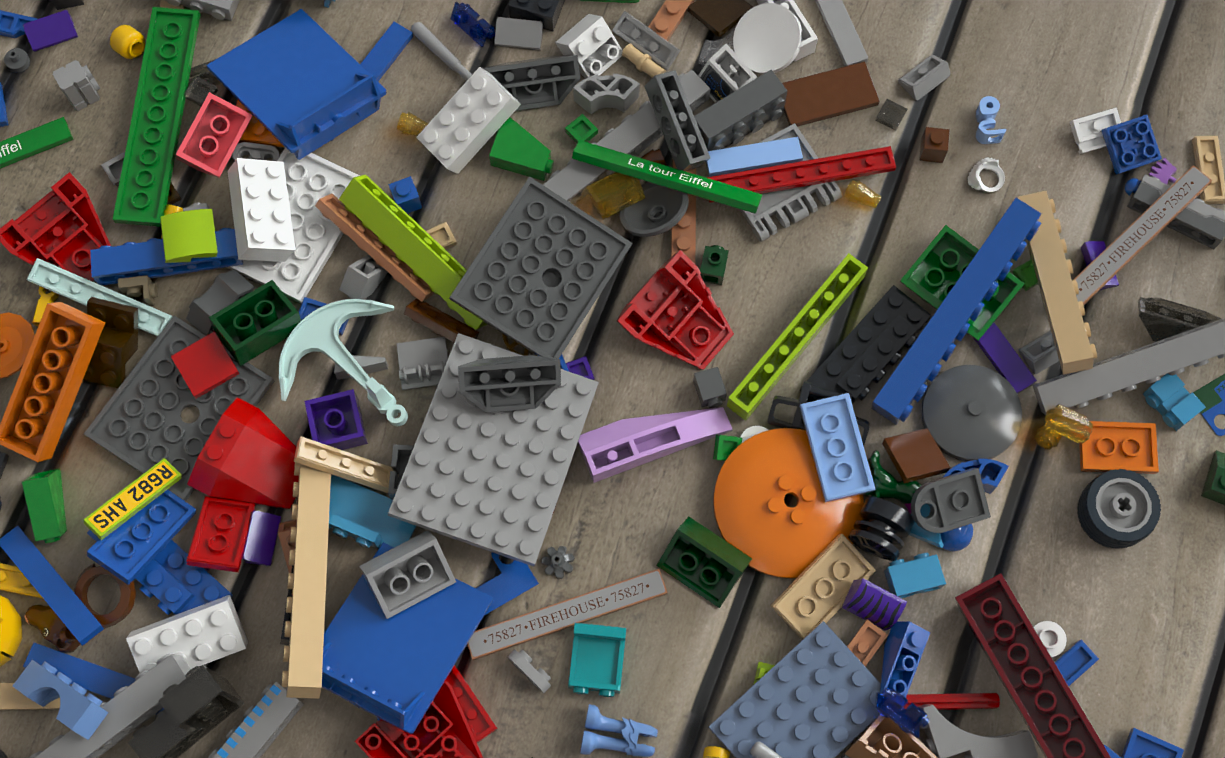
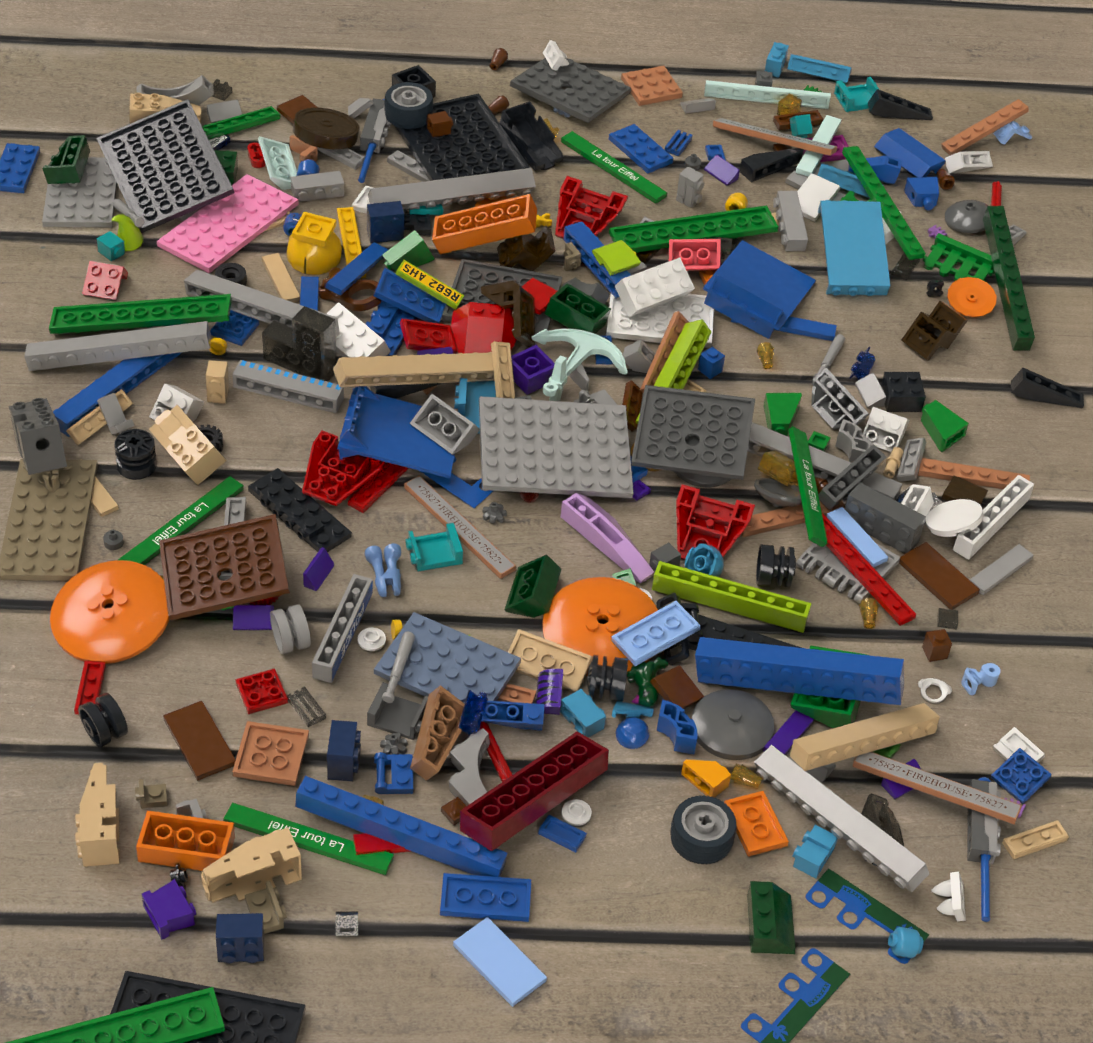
camera: 65 degrees right, 25 degrees down
(76, 710) = (289, 286): medium blue arch -> none
(82, 290) = (555, 222): light aqua tile -> none
(220, 396) = (513, 296): none -> dark brown bracket
(256, 151) = (698, 284): light grey plate -> none
(468, 120) = (783, 372): white brick -> none
(509, 382) = (600, 429): dark grey wedge -> none
(537, 677) = (408, 515): light grey plate -> none
(714, 264) = (759, 535): dark green brick -> none
(740, 345) = (705, 560): none -> dark azure cylinder
(771, 266) = (775, 565): none -> black wheel
(925, 77) = (992, 632): light grey slope -> none
(952, 502) = (649, 706): dark grey tile -> none
(1044, 471) = (706, 776): none -> light orange slope
(1068, 423) = (753, 773): clear yellow piece -> none

